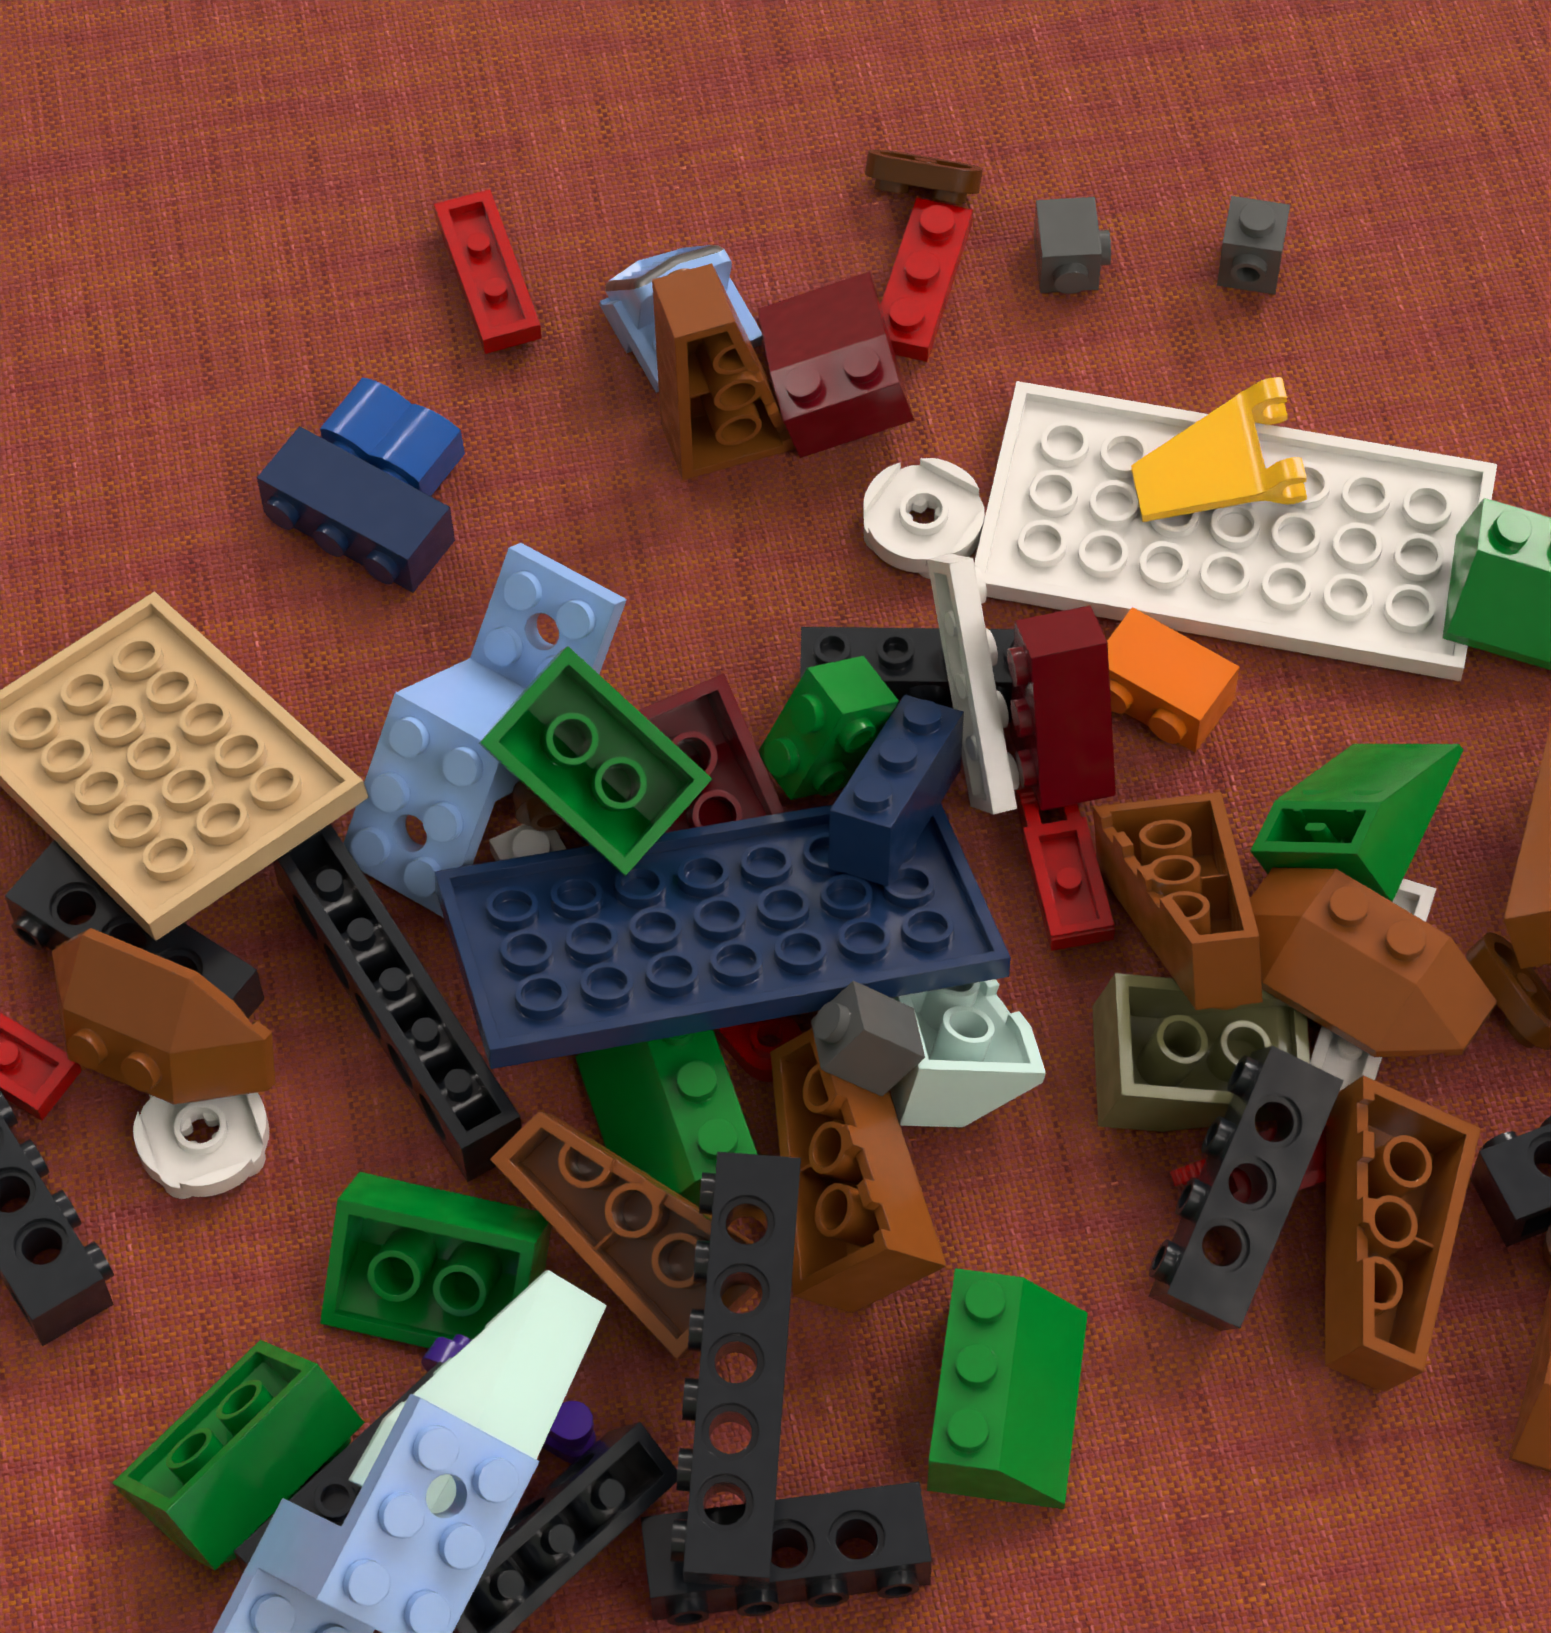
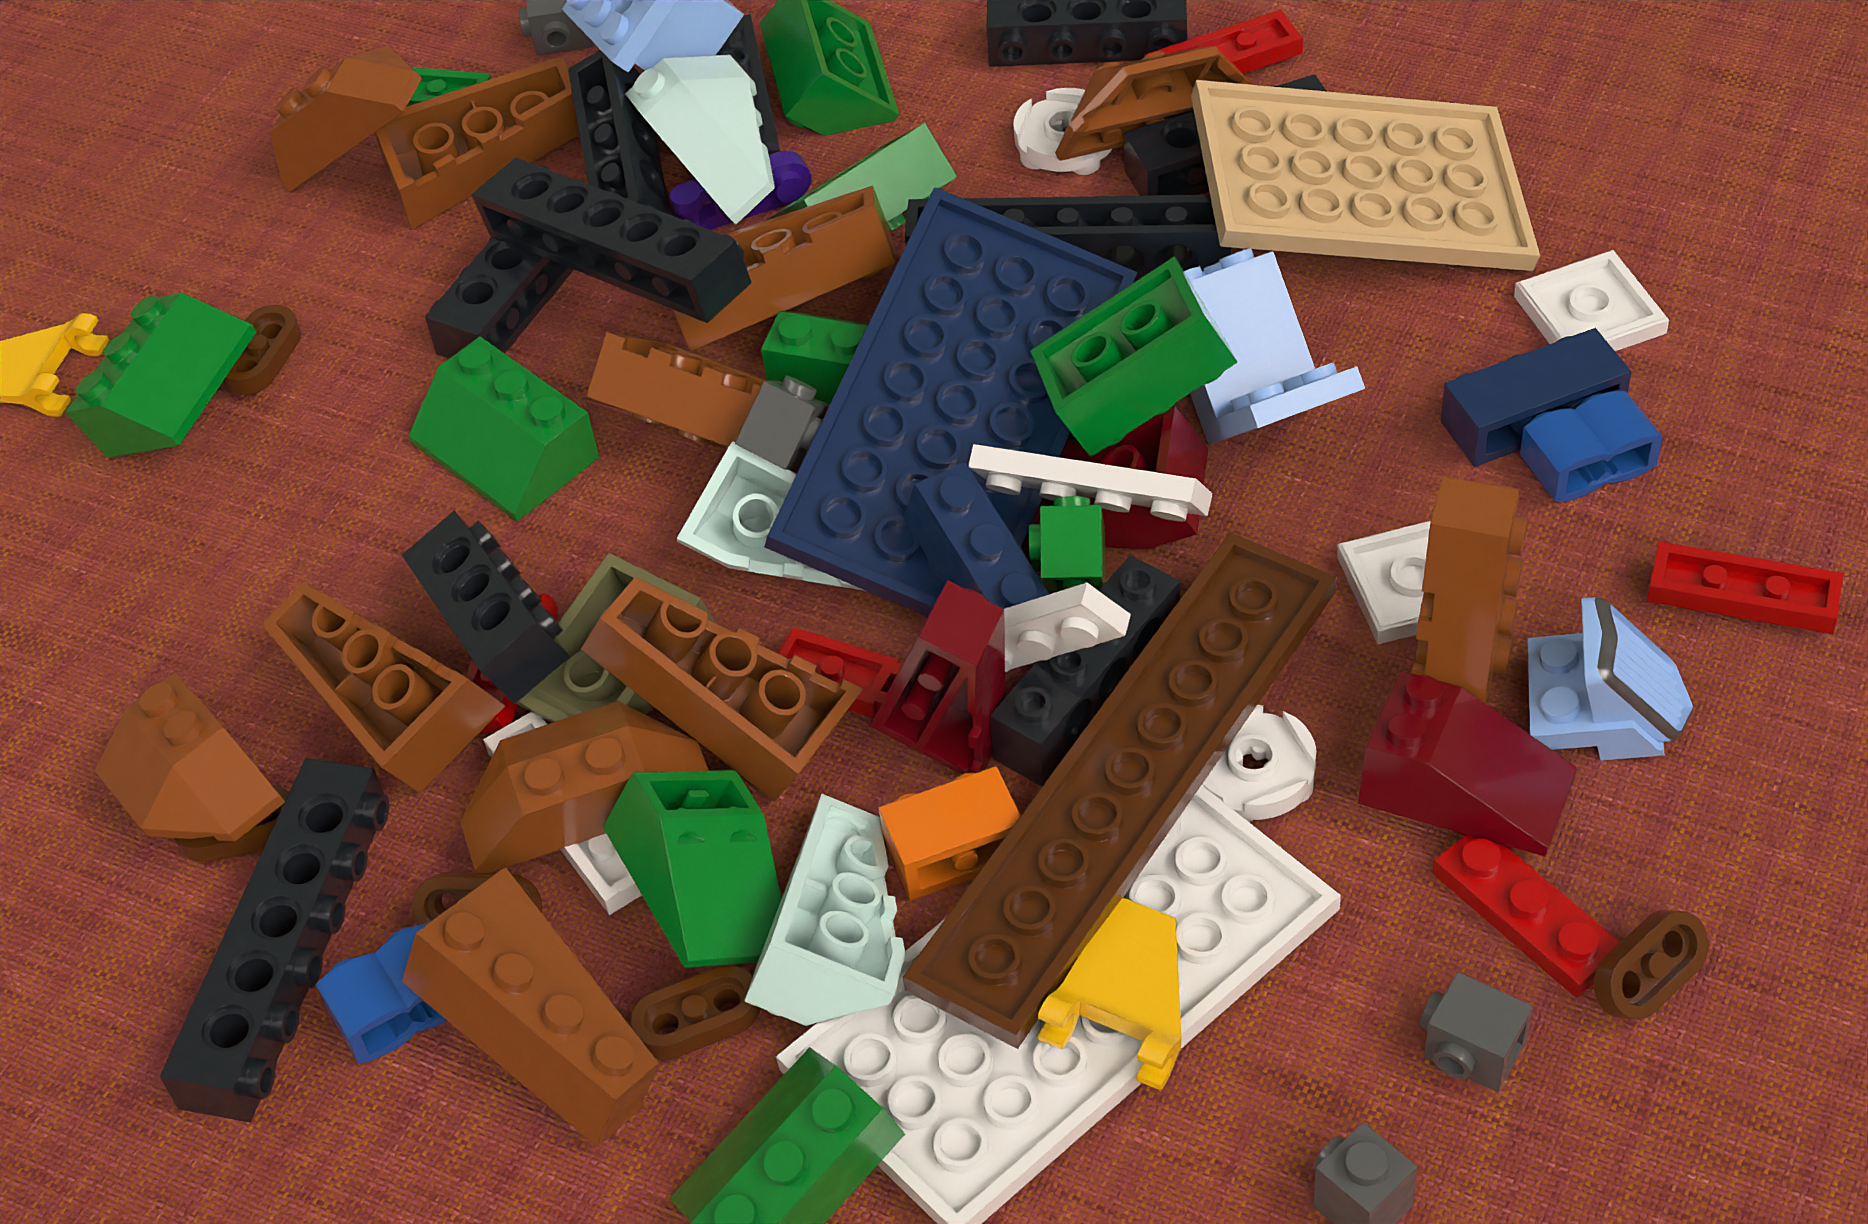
camera: 130 degrees right, 10 degrees down
(188, 537) = (1590, 296): none -> white tile
(631, 512) = (1388, 578): none -> white tile
(762, 725) = (1110, 485): none -> white plate
(1034, 558) = (1119, 790): none -> reddish brown plate
(1334, 698) = (834, 928): none -> light aqua wedge
(1481, 759) = (695, 1012): none -> reddish brown plate

